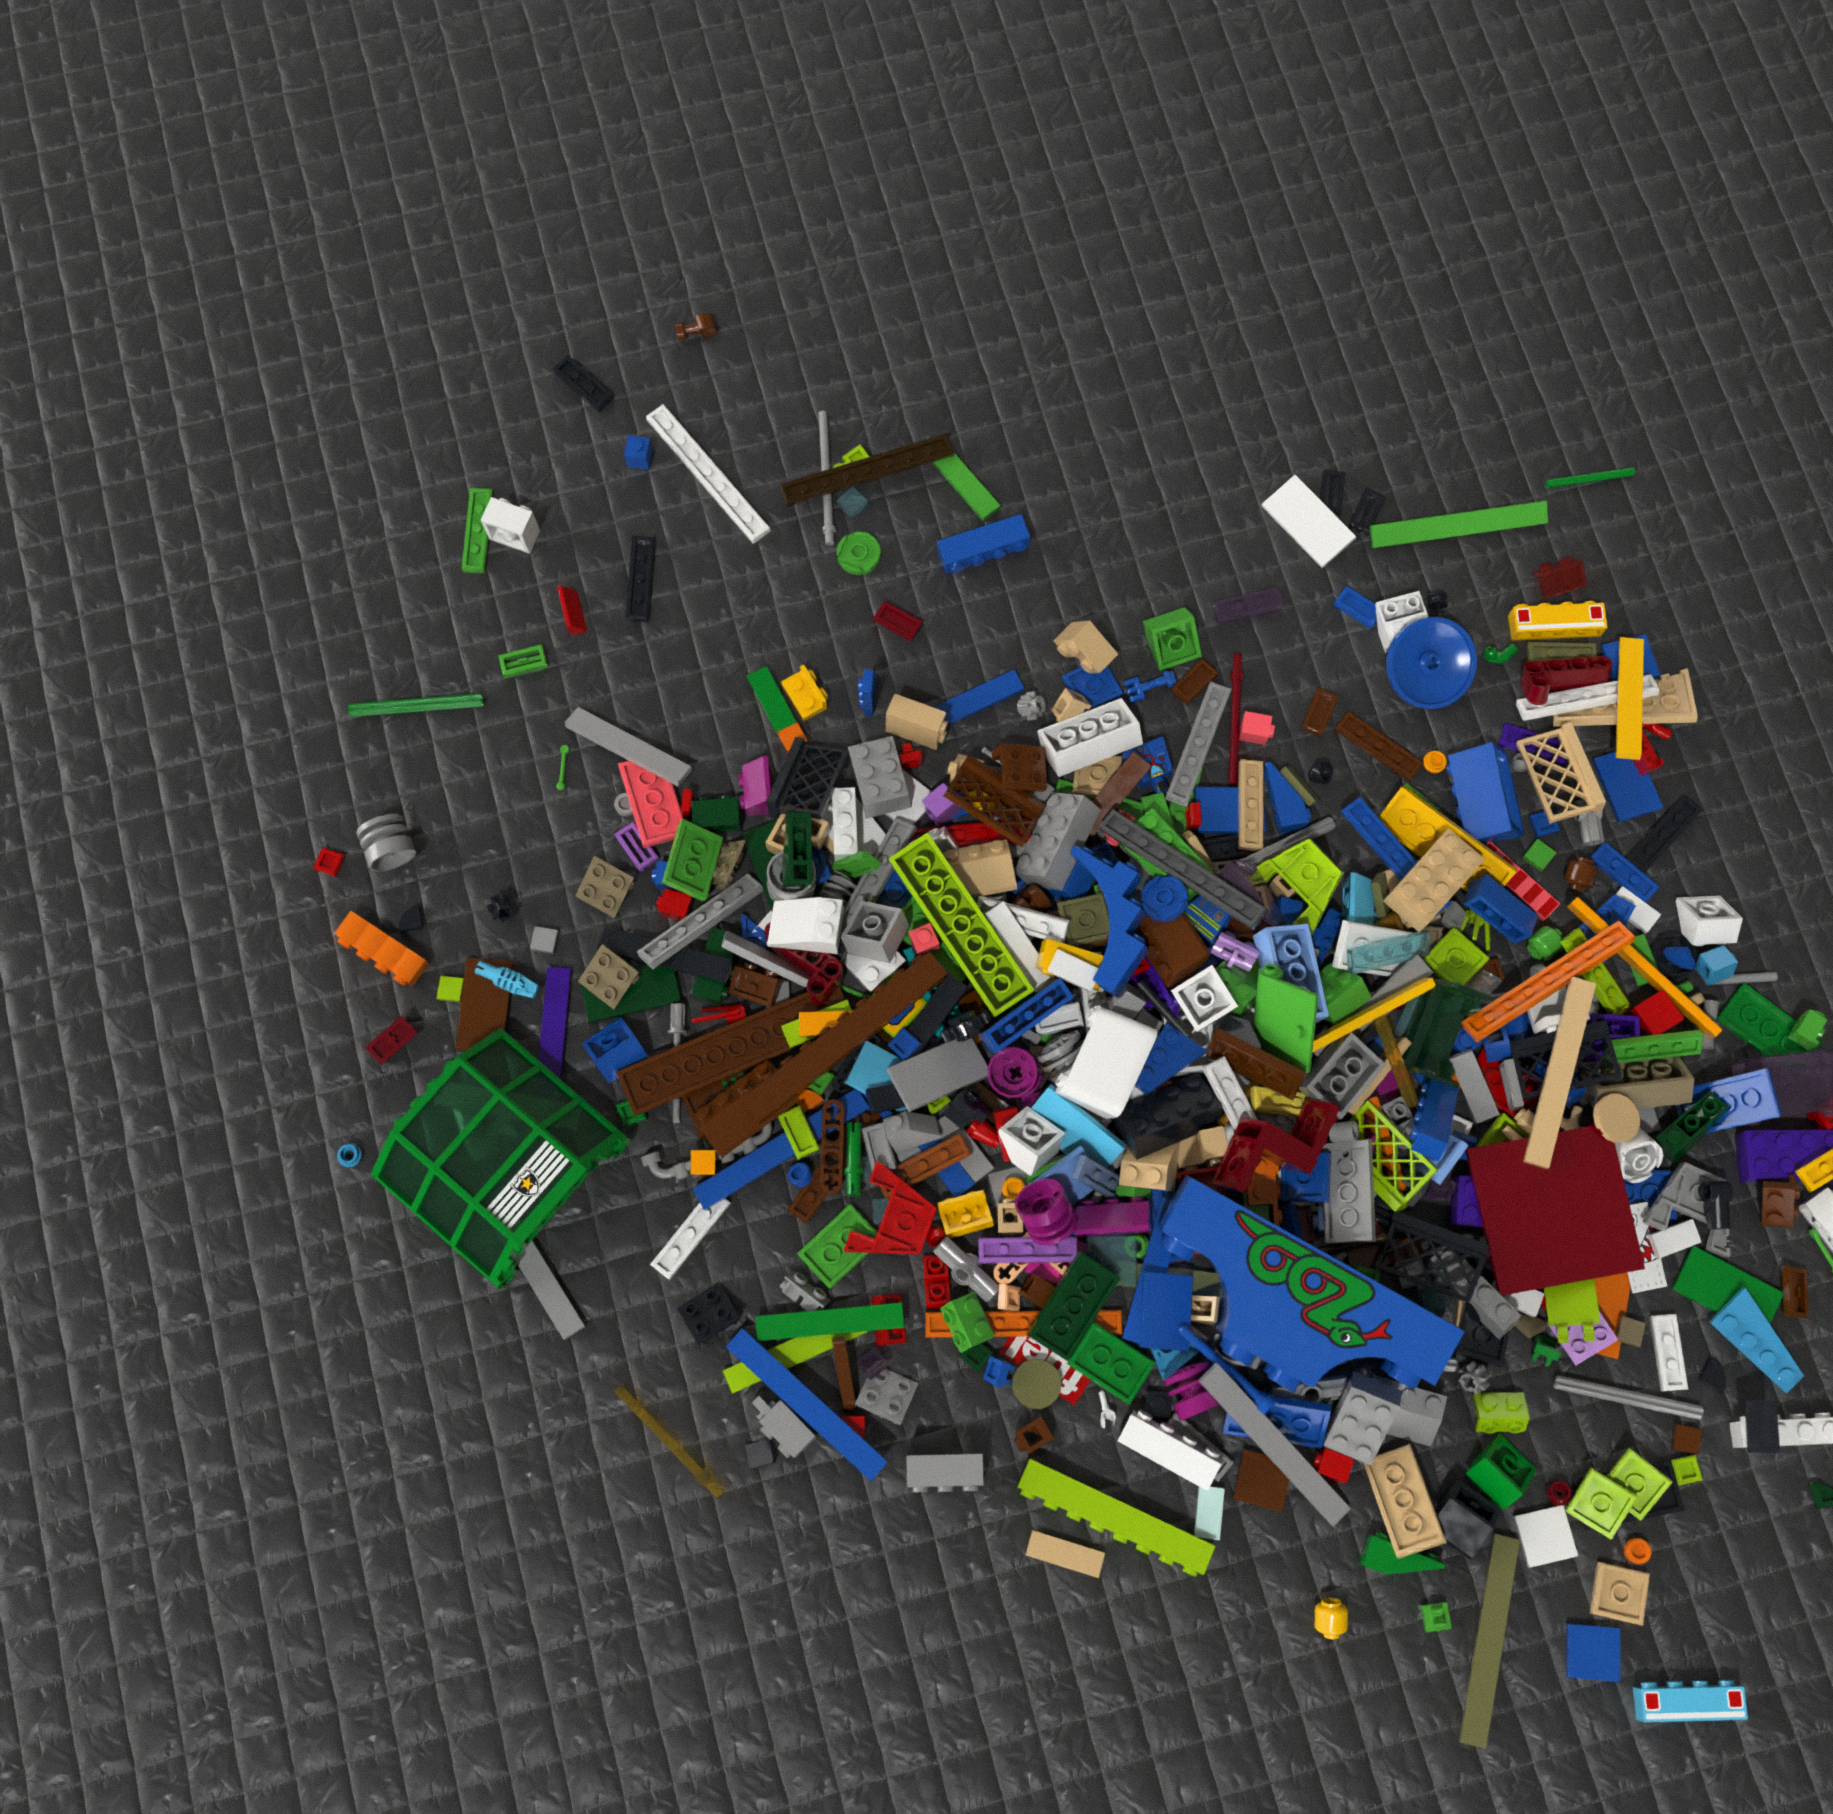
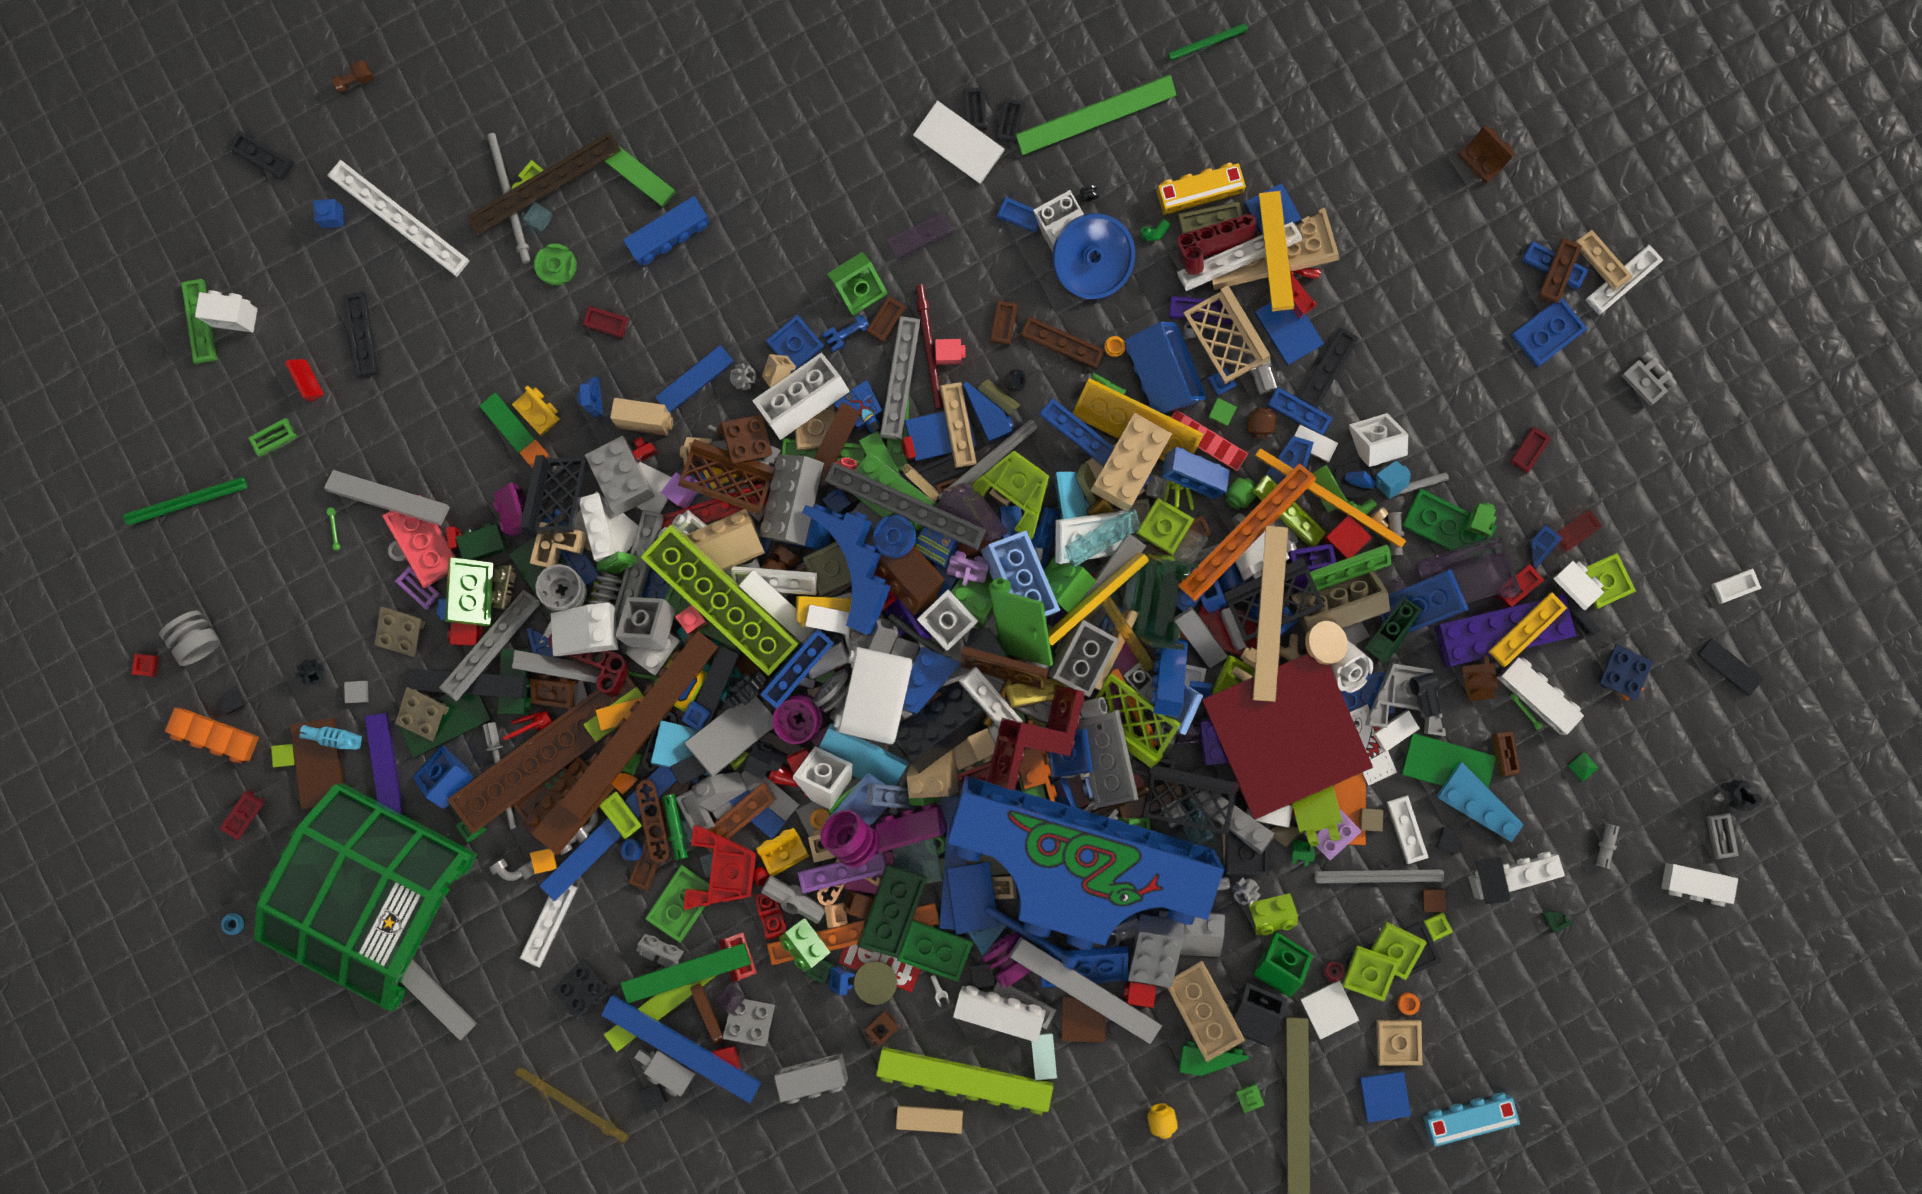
camera: 10 degrees left, 10 degrees up
(797, 851) = (557, 567): dark green slope -> none
(1087, 644) = (778, 308): tan brick -> none
(1561, 577) = (1196, 145): clear red bracket -> none

